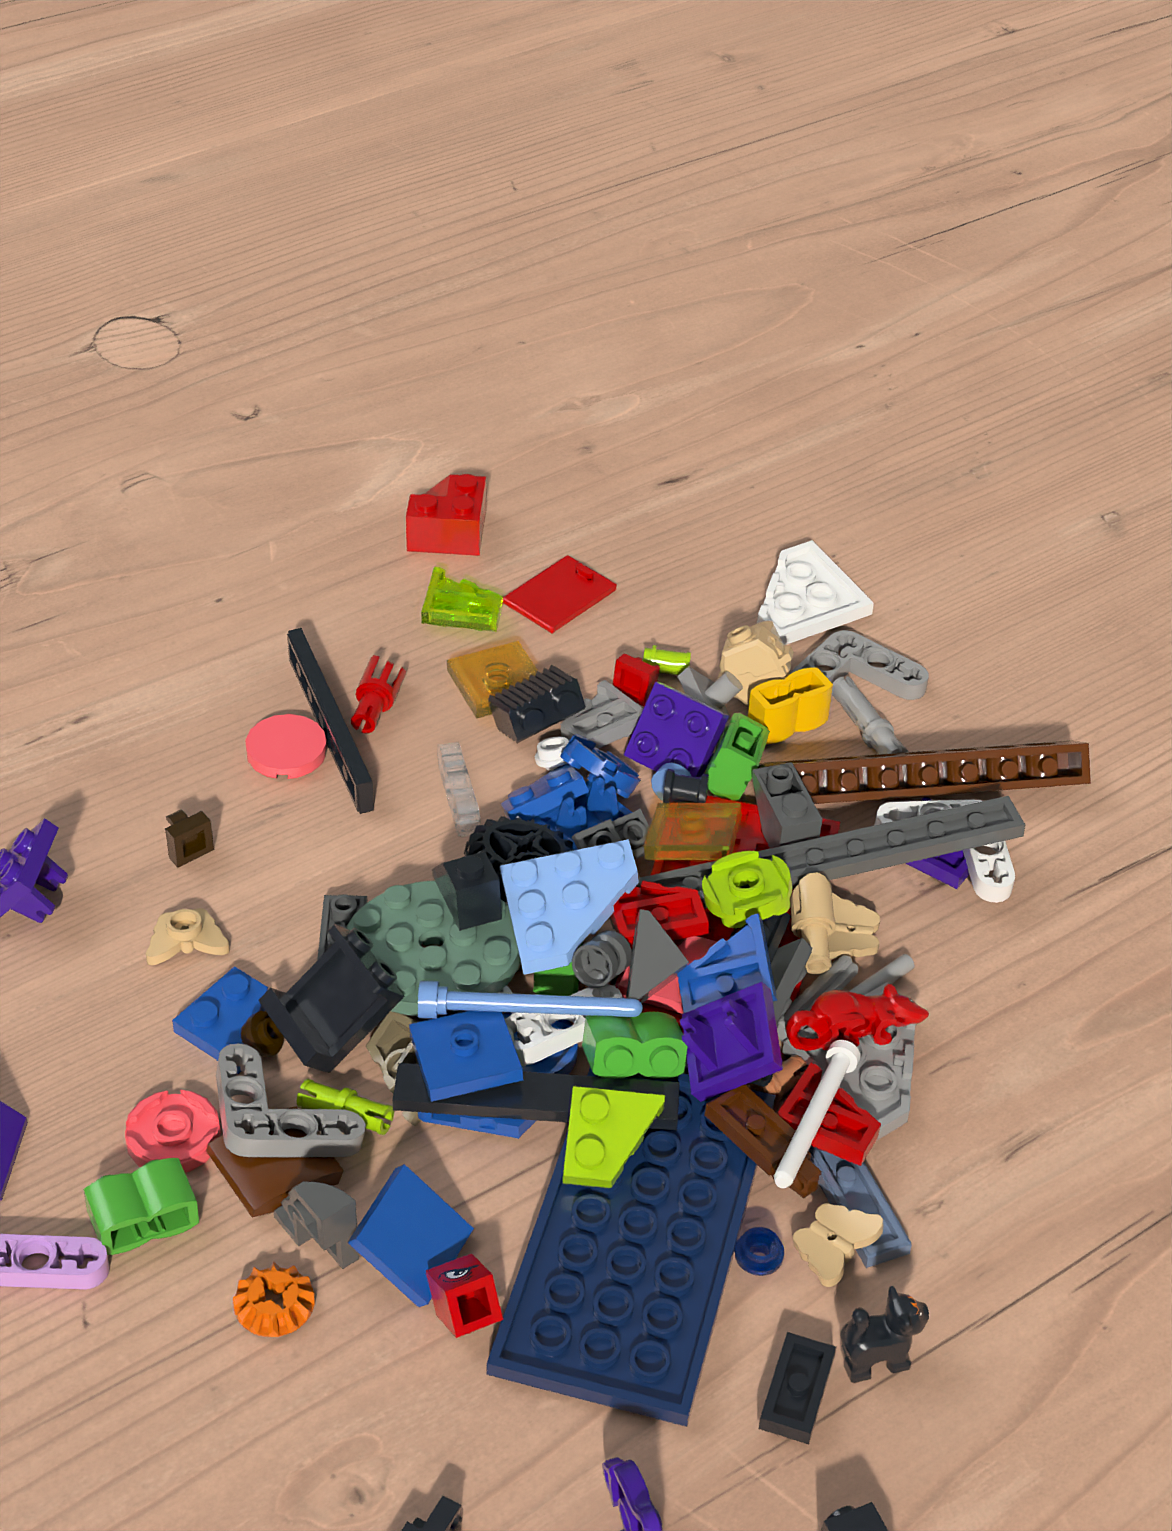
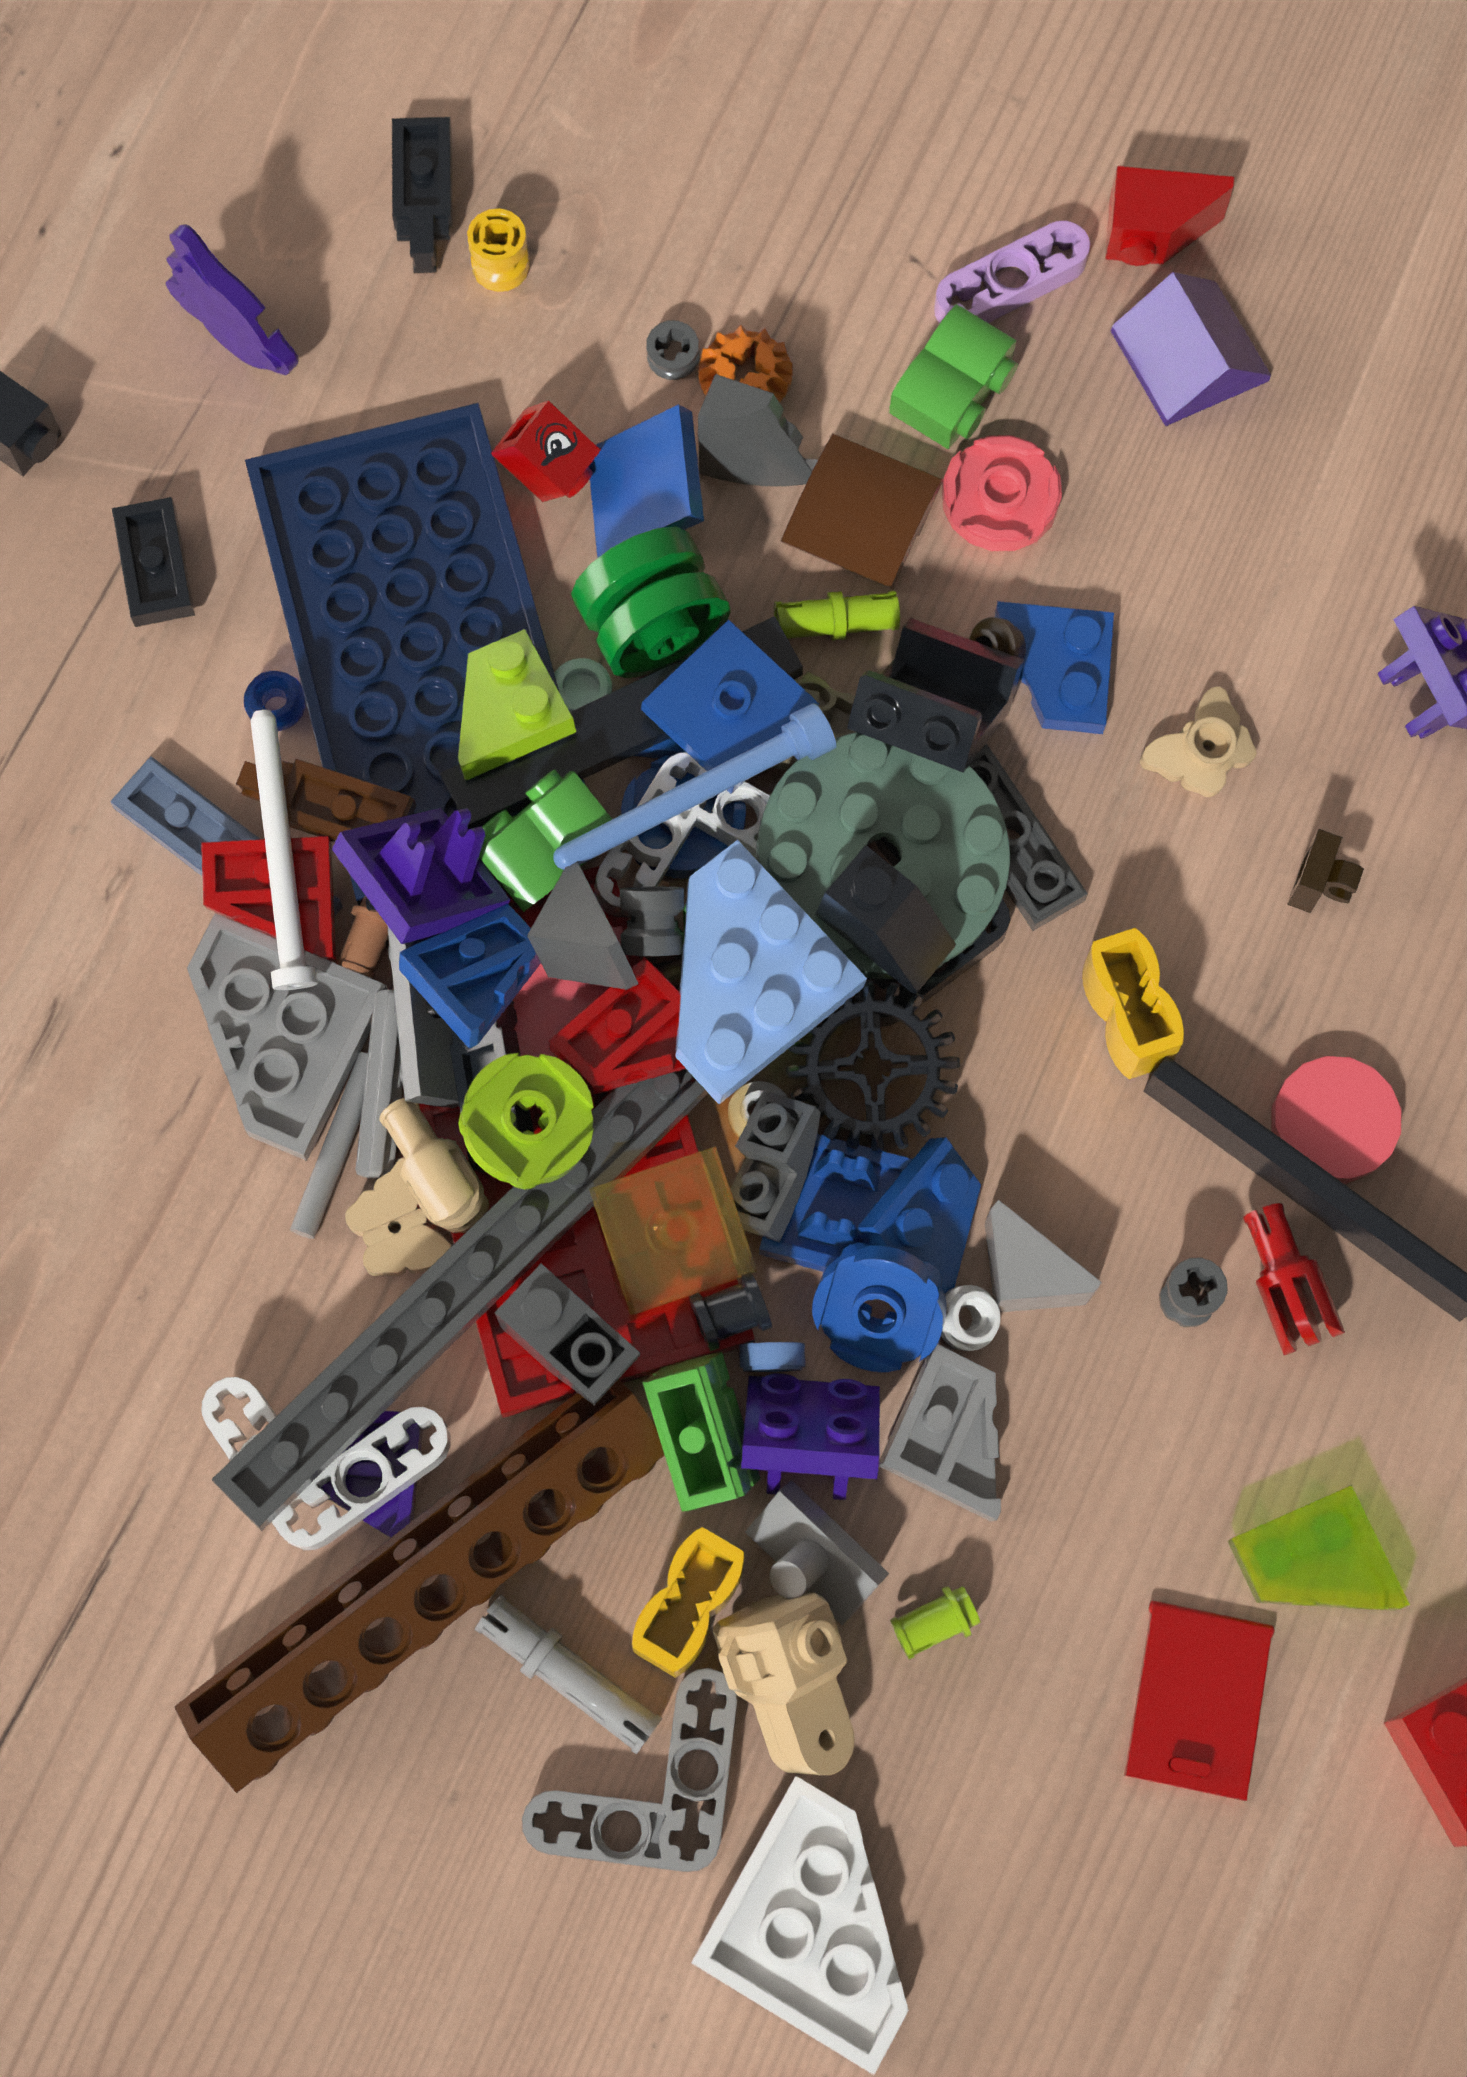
camera: 150 degrees right, 30 degrees up
(259, 1120) = (907, 517): light grey beam -> none
(312, 1356) = (661, 338): none -> dark grey bush
(351, 821) = (1125, 991): none -> yellow brick
(388, 1478) = (498, 250): none -> yellow wheel
(430, 709) = (1201, 1275): none -> dark grey bush
(458, 788) = (1050, 1168): clear beam -> none
(468, 1143) = (650, 601): none -> green wheel
(489, 672) = (1149, 1425): clear yellow plate -> none
(507, 753) = (1029, 1268): none -> light grey slope
(536, 703) = (1047, 1379): black brick -> none
(539, 1156) = (582, 682): none -> light aqua tile
(635, 678) = (951, 1542): red tile -> none
(834, 1238) = (195, 728): tan animal -> none
(852, 1016) = (319, 1038): red animal -> none
(882, 1337) = (84, 644): black animal -> none

